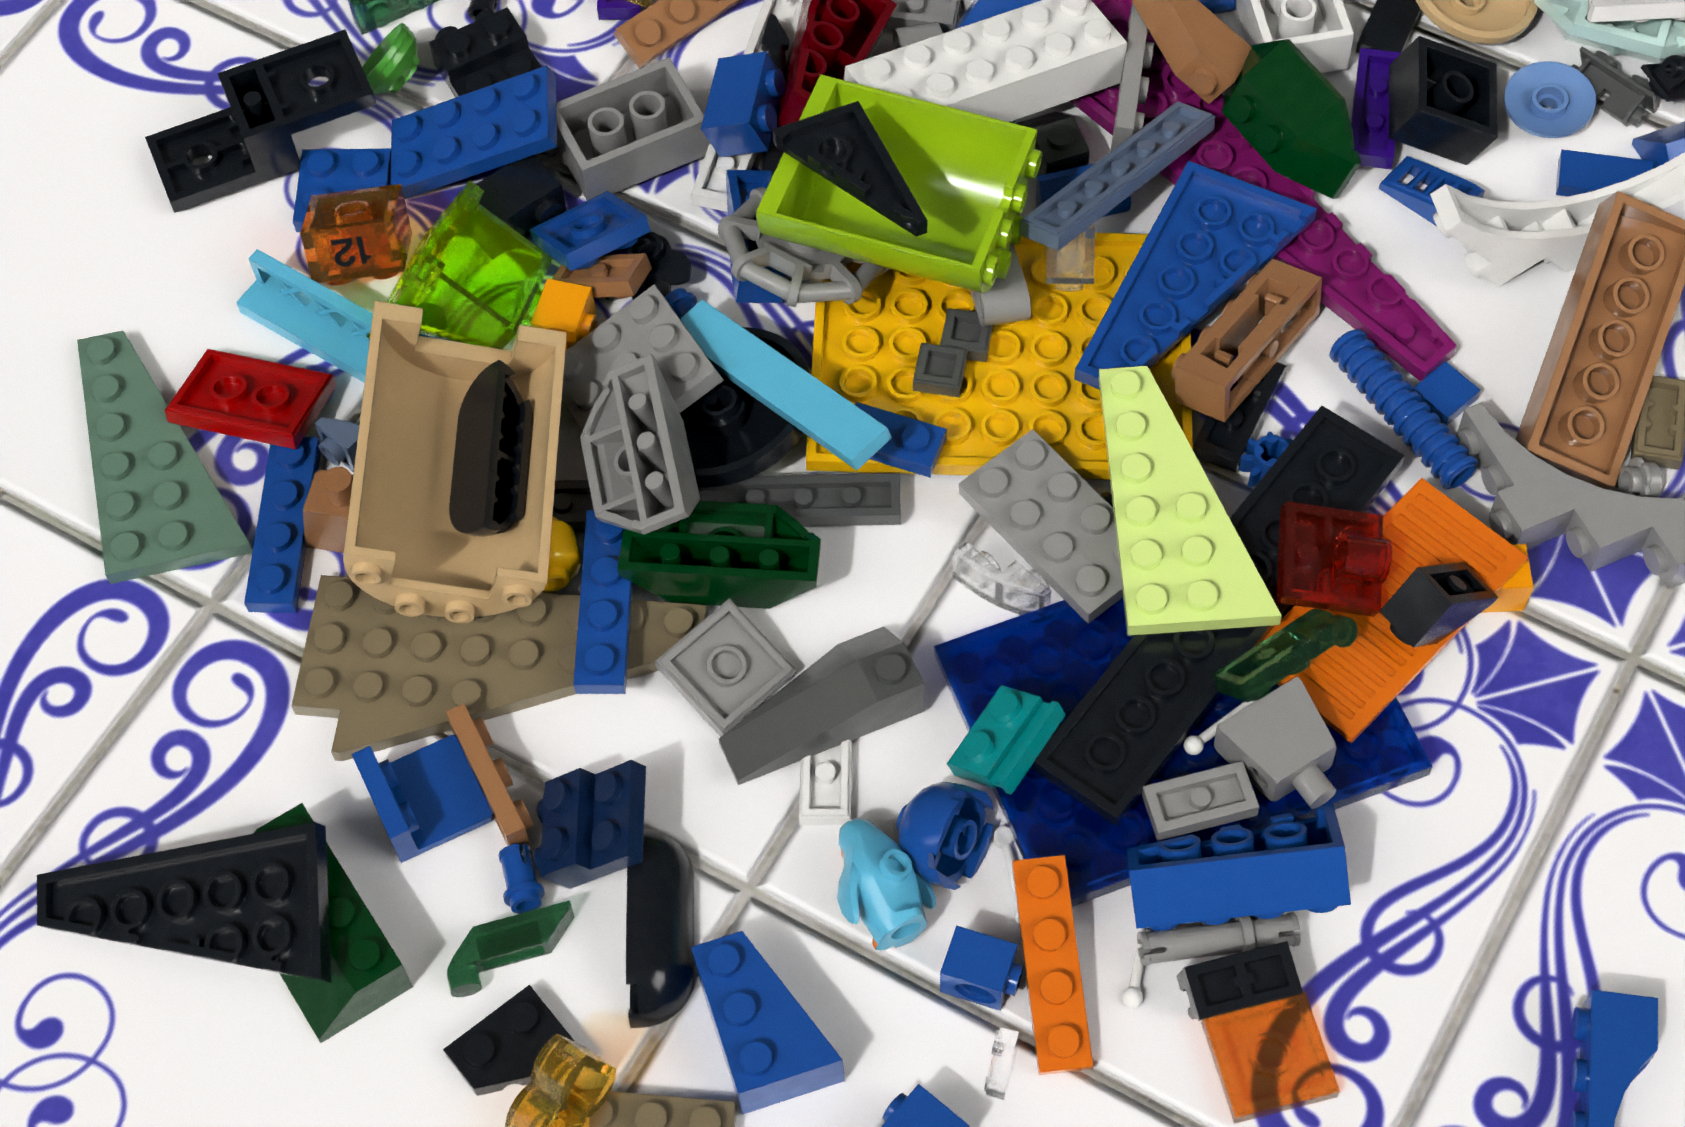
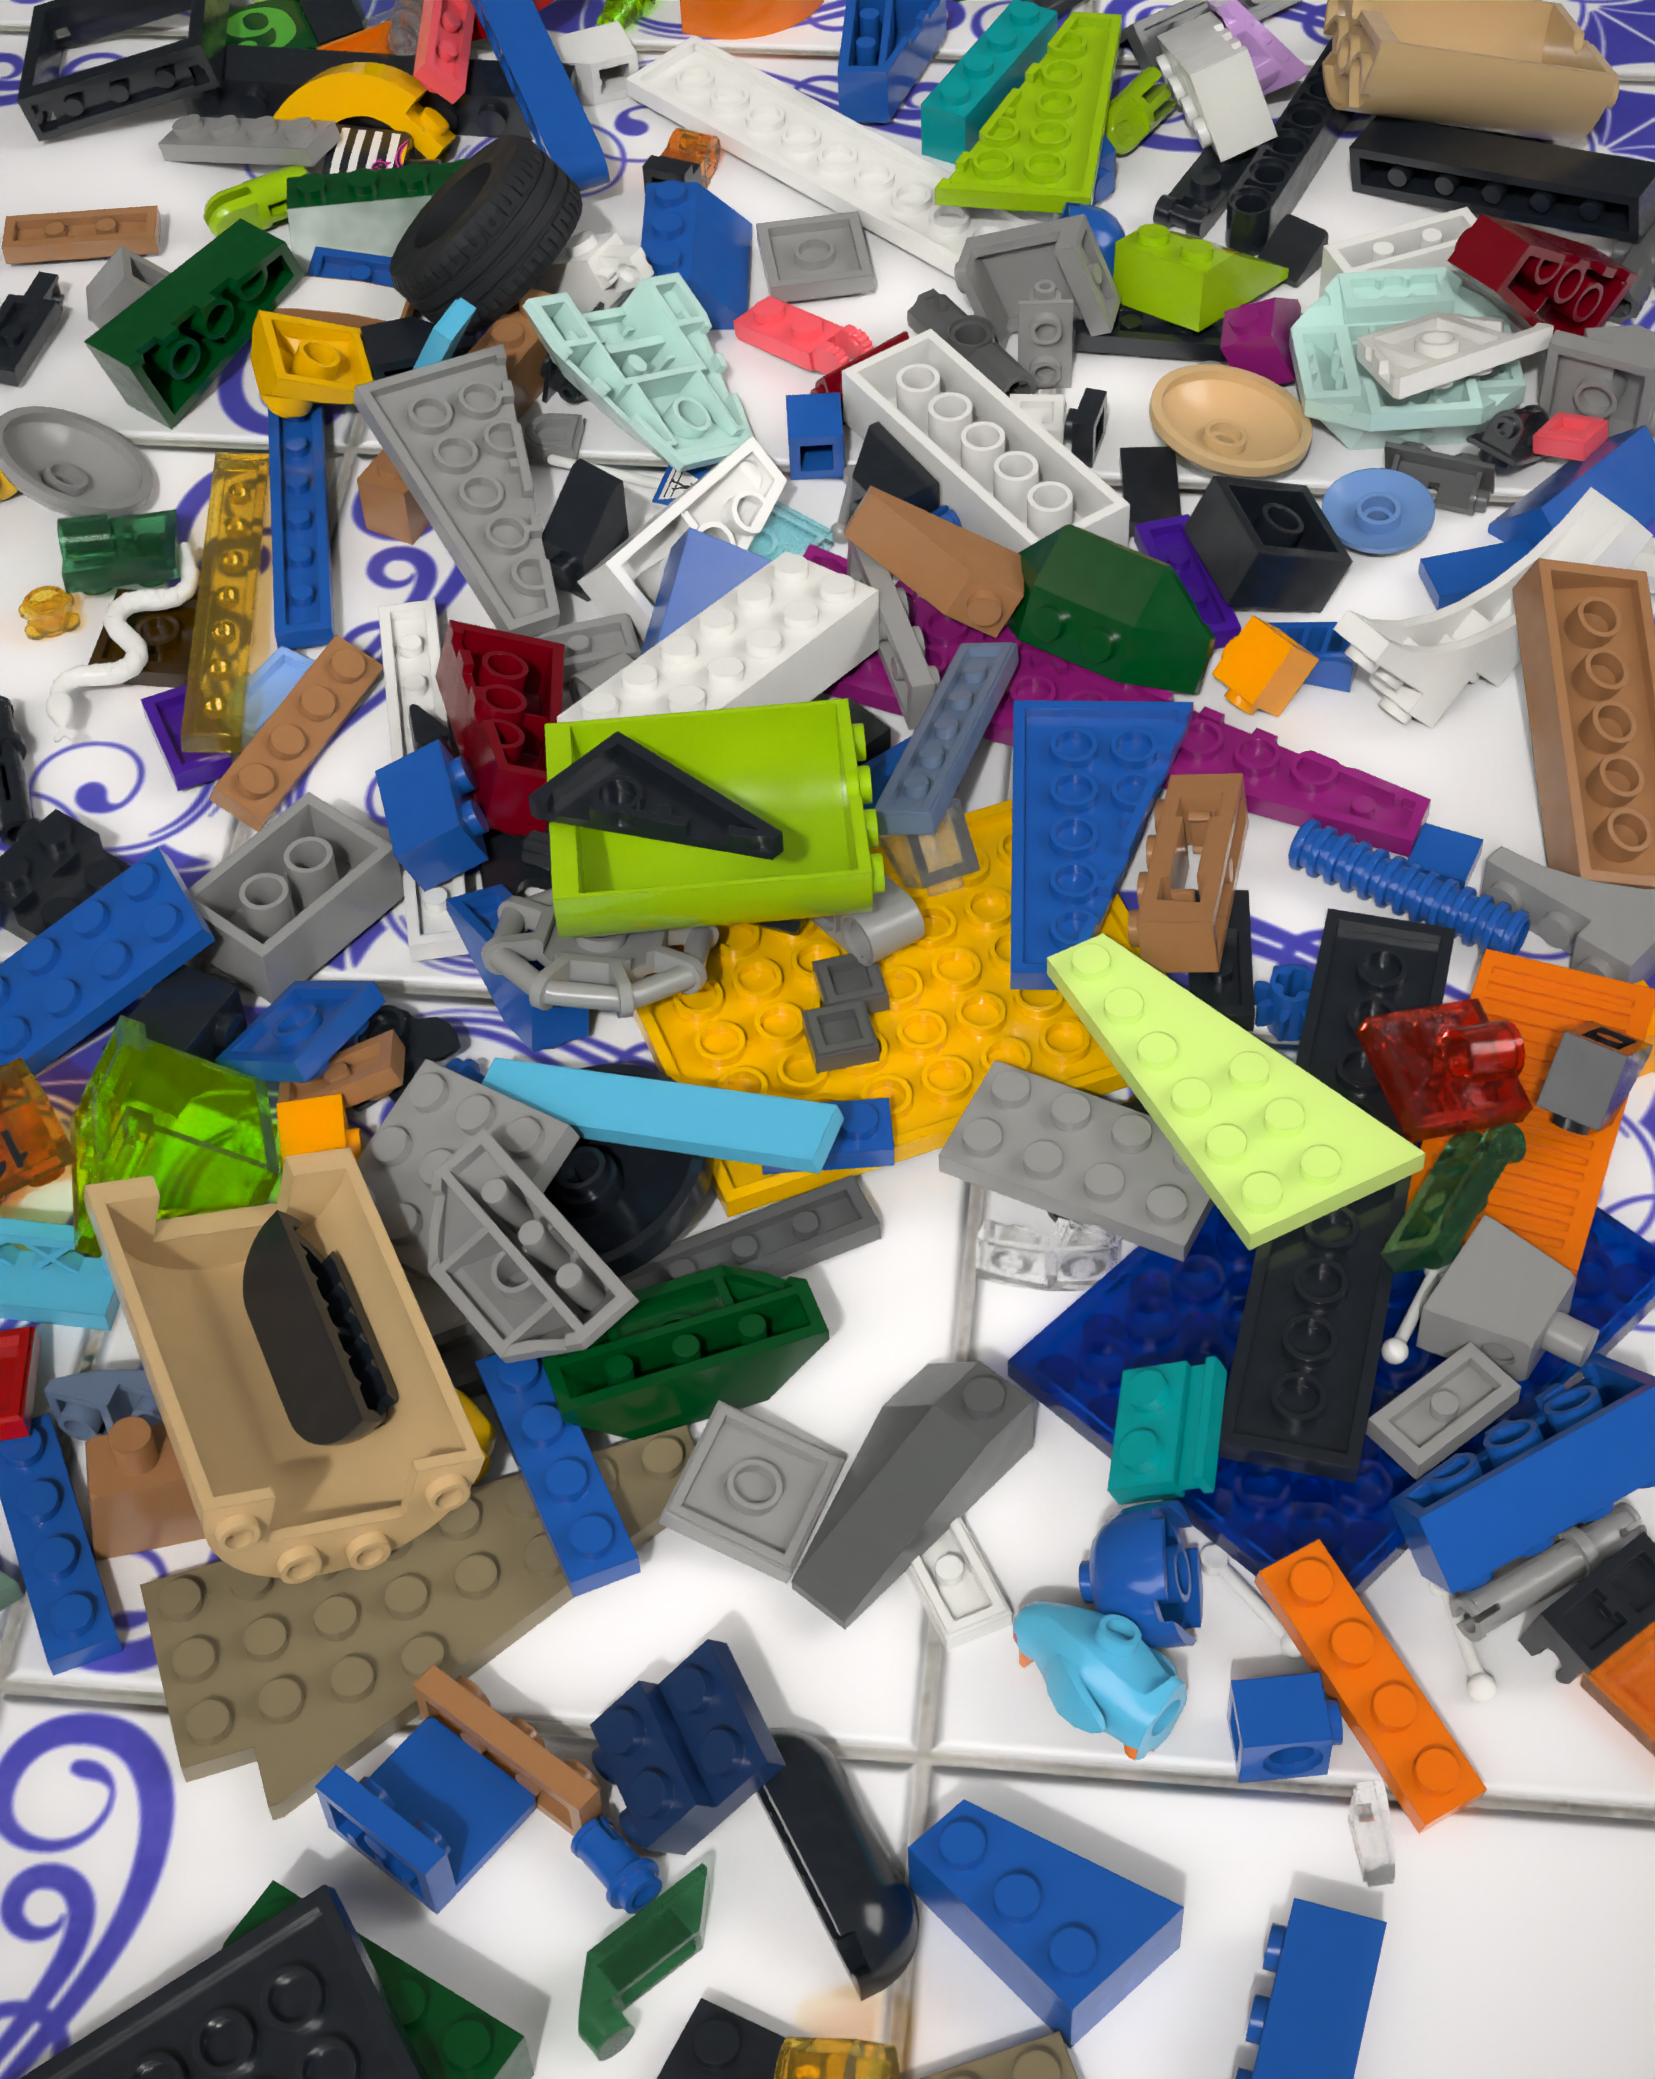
camera: 25 degrees left, 10 degrees down
(1390, 197) = (1263, 668): none -> light orange brick

